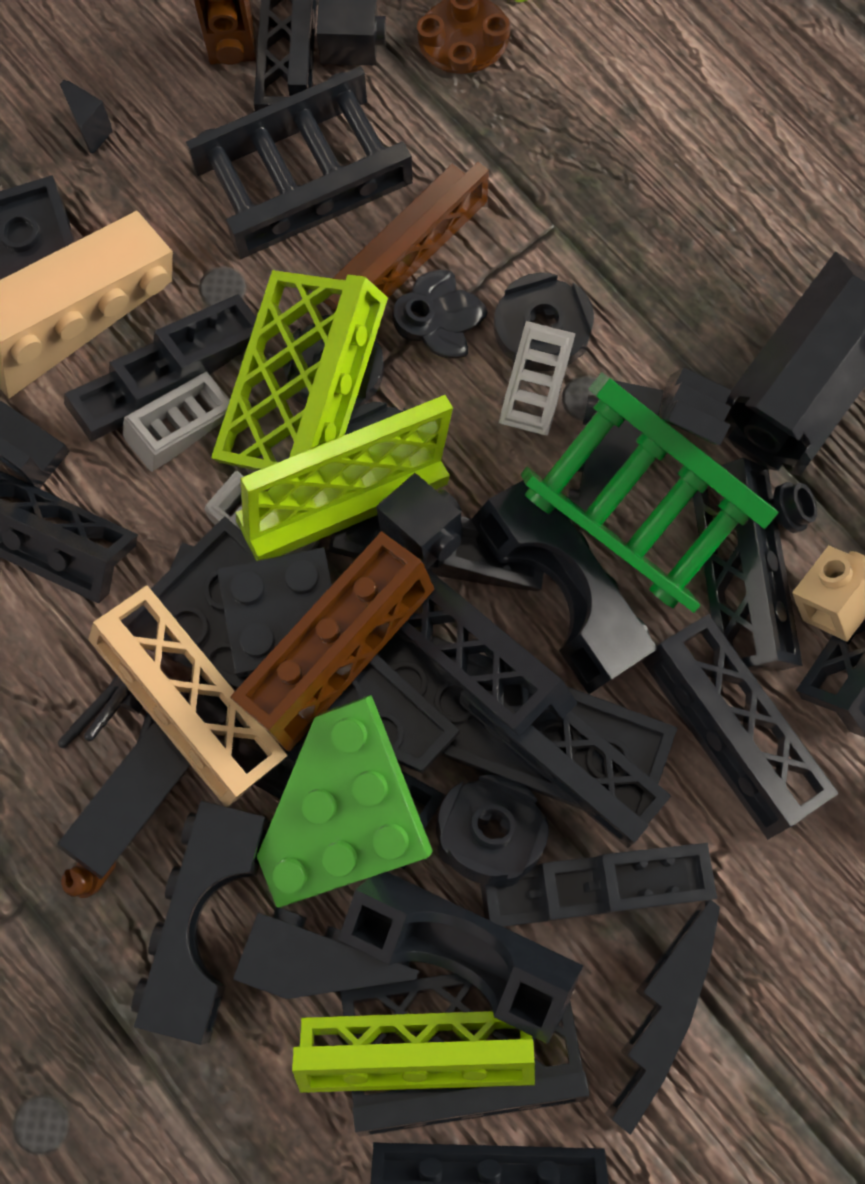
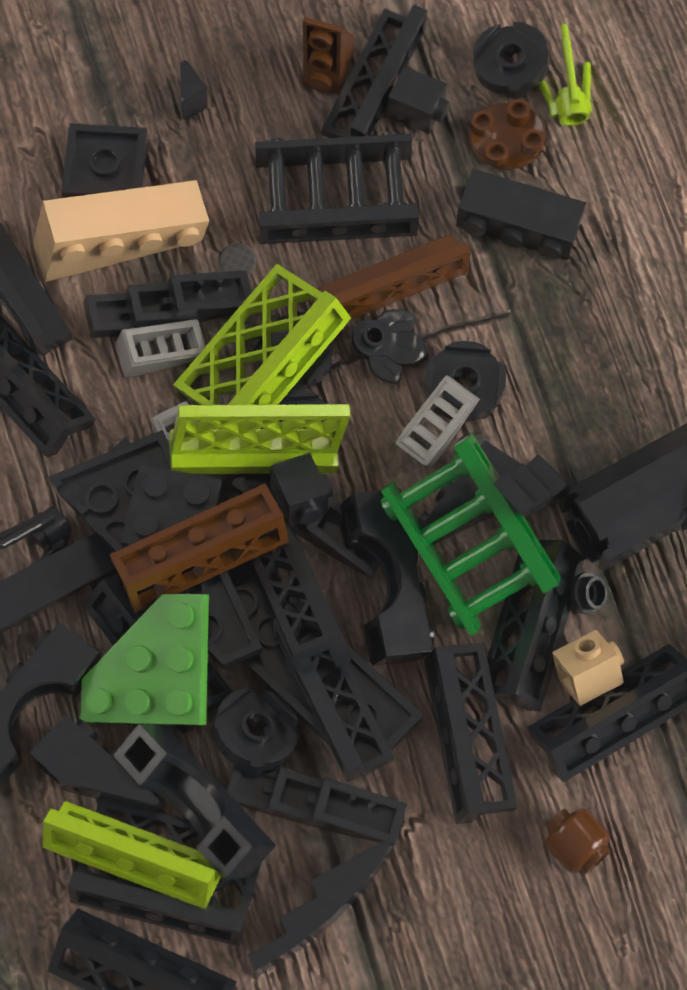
camera: 20 degrees right, 5 degrees down
(170, 709) = (64, 546): tan fence -> none
(520, 112) = (520, 214): none -> black brick

